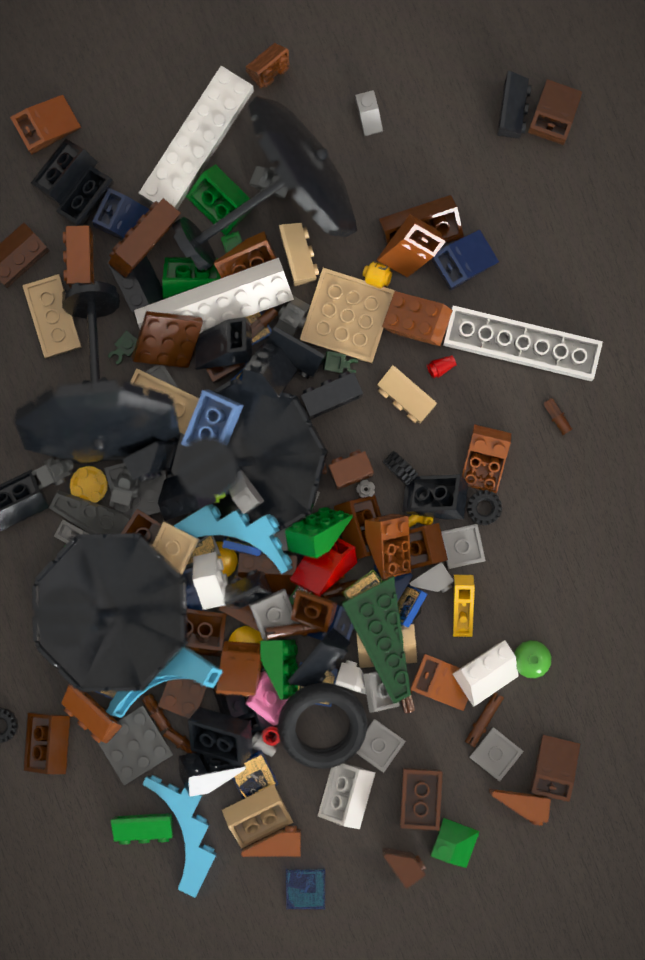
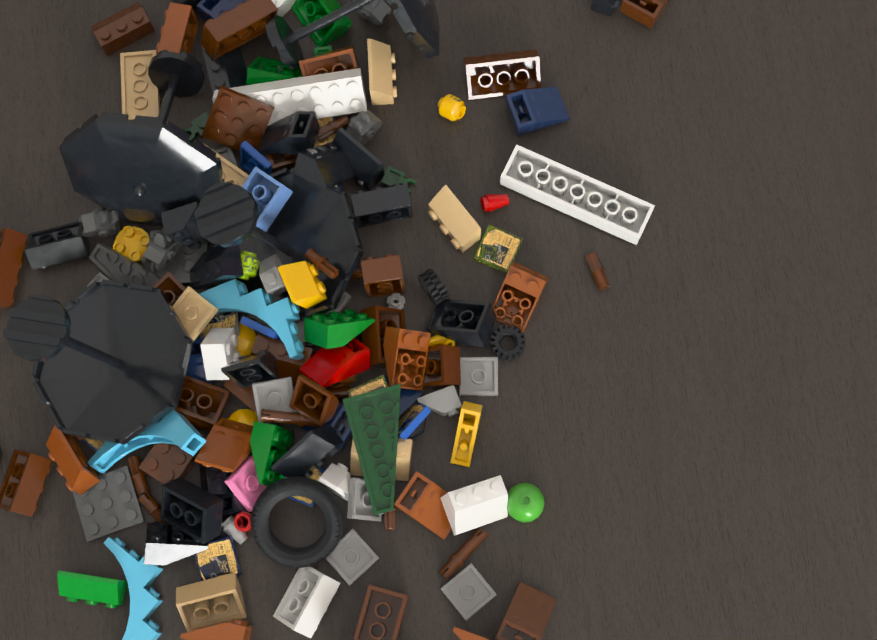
camera: 15 degrees right, 10 degrees down
(193, 377) = (251, 157): none -> blue tile
(277, 498) = (303, 283): none -> yellow slope
(290, 474) = (321, 263): none -> reddish brown axle
(346, 315) = (415, 138): tan plate -> none
(411, 246) = (487, 85): dark orange slope -> none
(417, 318) = (480, 150): dark orange brick -> none
(455, 413) = (498, 248): none -> tile

